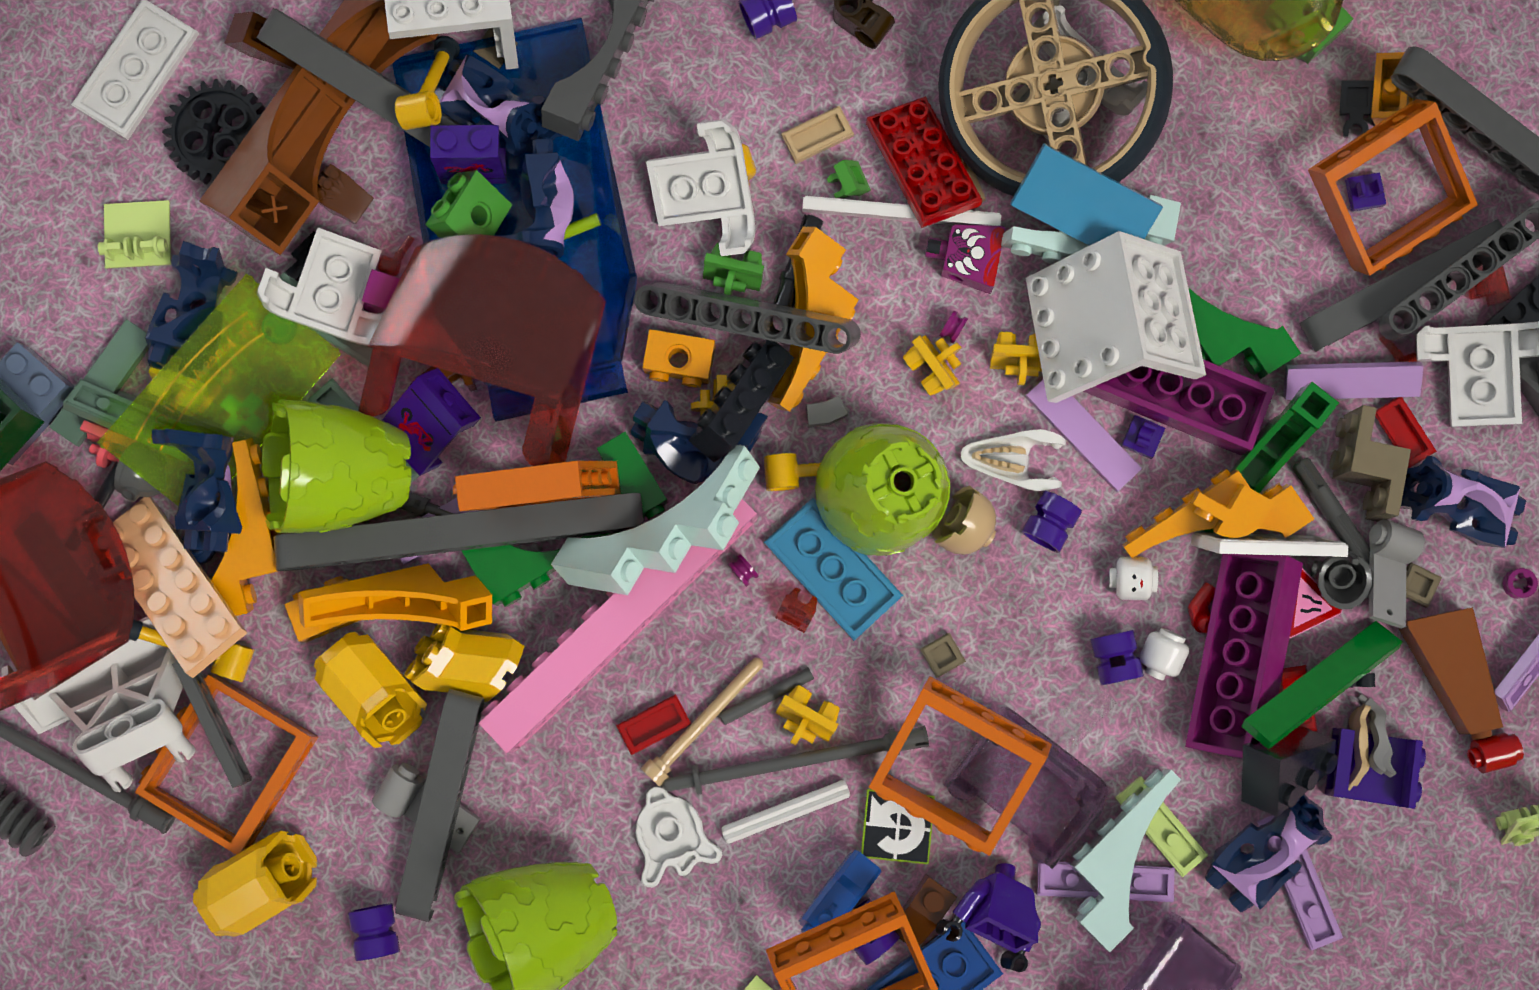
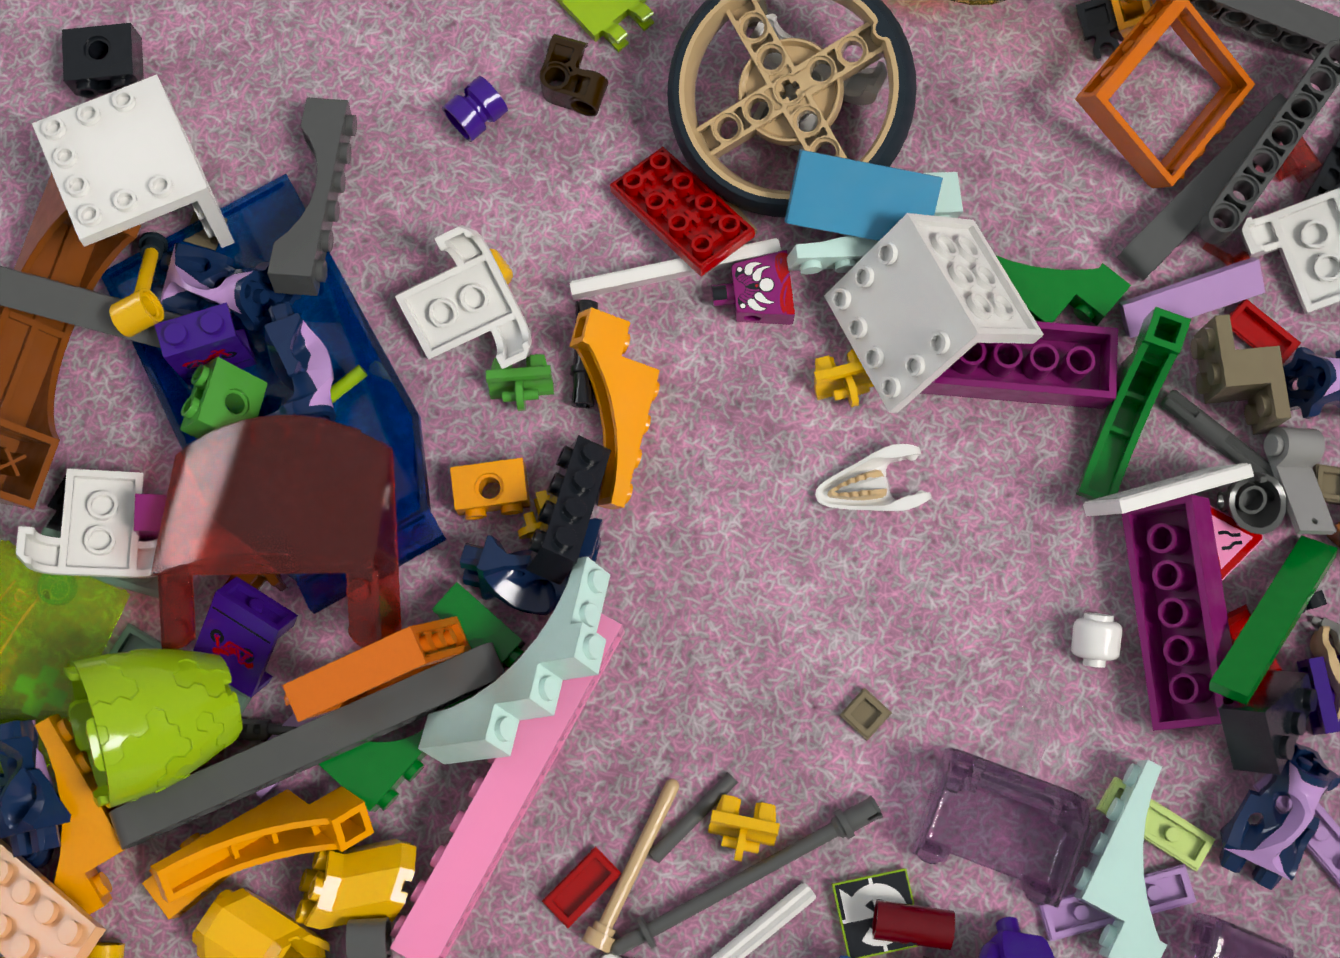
camera: 15 degrees left, 5 degrees down
(342, 194) = (85, 428): reddish brown hand -> none
(392, 265) = (160, 484): clear red hand -> none
(743, 570) = (626, 690): magenta bush -> none
(760, 312) = (563, 417): dark grey beam -> none
(783, 471) = (637, 572): yellow piece -> none
(796, 612) = (696, 717): clear red tile -> none
(817, 134) = (564, 218): tan tile -> none
(826, 413) = (662, 497): light grey piece -> none
(839, 578) = (721, 659): dark azure tile -> none
(851, 179) = (613, 251): bright green tile -> none
(859, 491) = (727, 572): lime piece -> none
(925, 843) = (913, 924): none -> dark red pin
(942, 375) = (745, 403): yellow hips -> none
(953, 327) = (766, 368): magenta bush -> none
(967, 524) = (846, 568): tan cylinder -> none
(984, 723) = (938, 773): orange window -> none
(1051, 522) = (933, 537): dark purple wheel -> none
(1086, 437) = (939, 439): lavender tile -> none
(1116, 645) = (1043, 646): dark purple wheel -> none
(1134, 578) = (1038, 569): white head -> none
(1143, 437) = (997, 421): dark purple tile -> none
(1199, 609) = (1115, 580): red arm -> none
(1242, 515) = (1131, 466): light orange brick -> none
(1285, 517) = (1106, 463): light orange arch -> none
(1365, 192) = (1138, 106): dark purple tile -> none

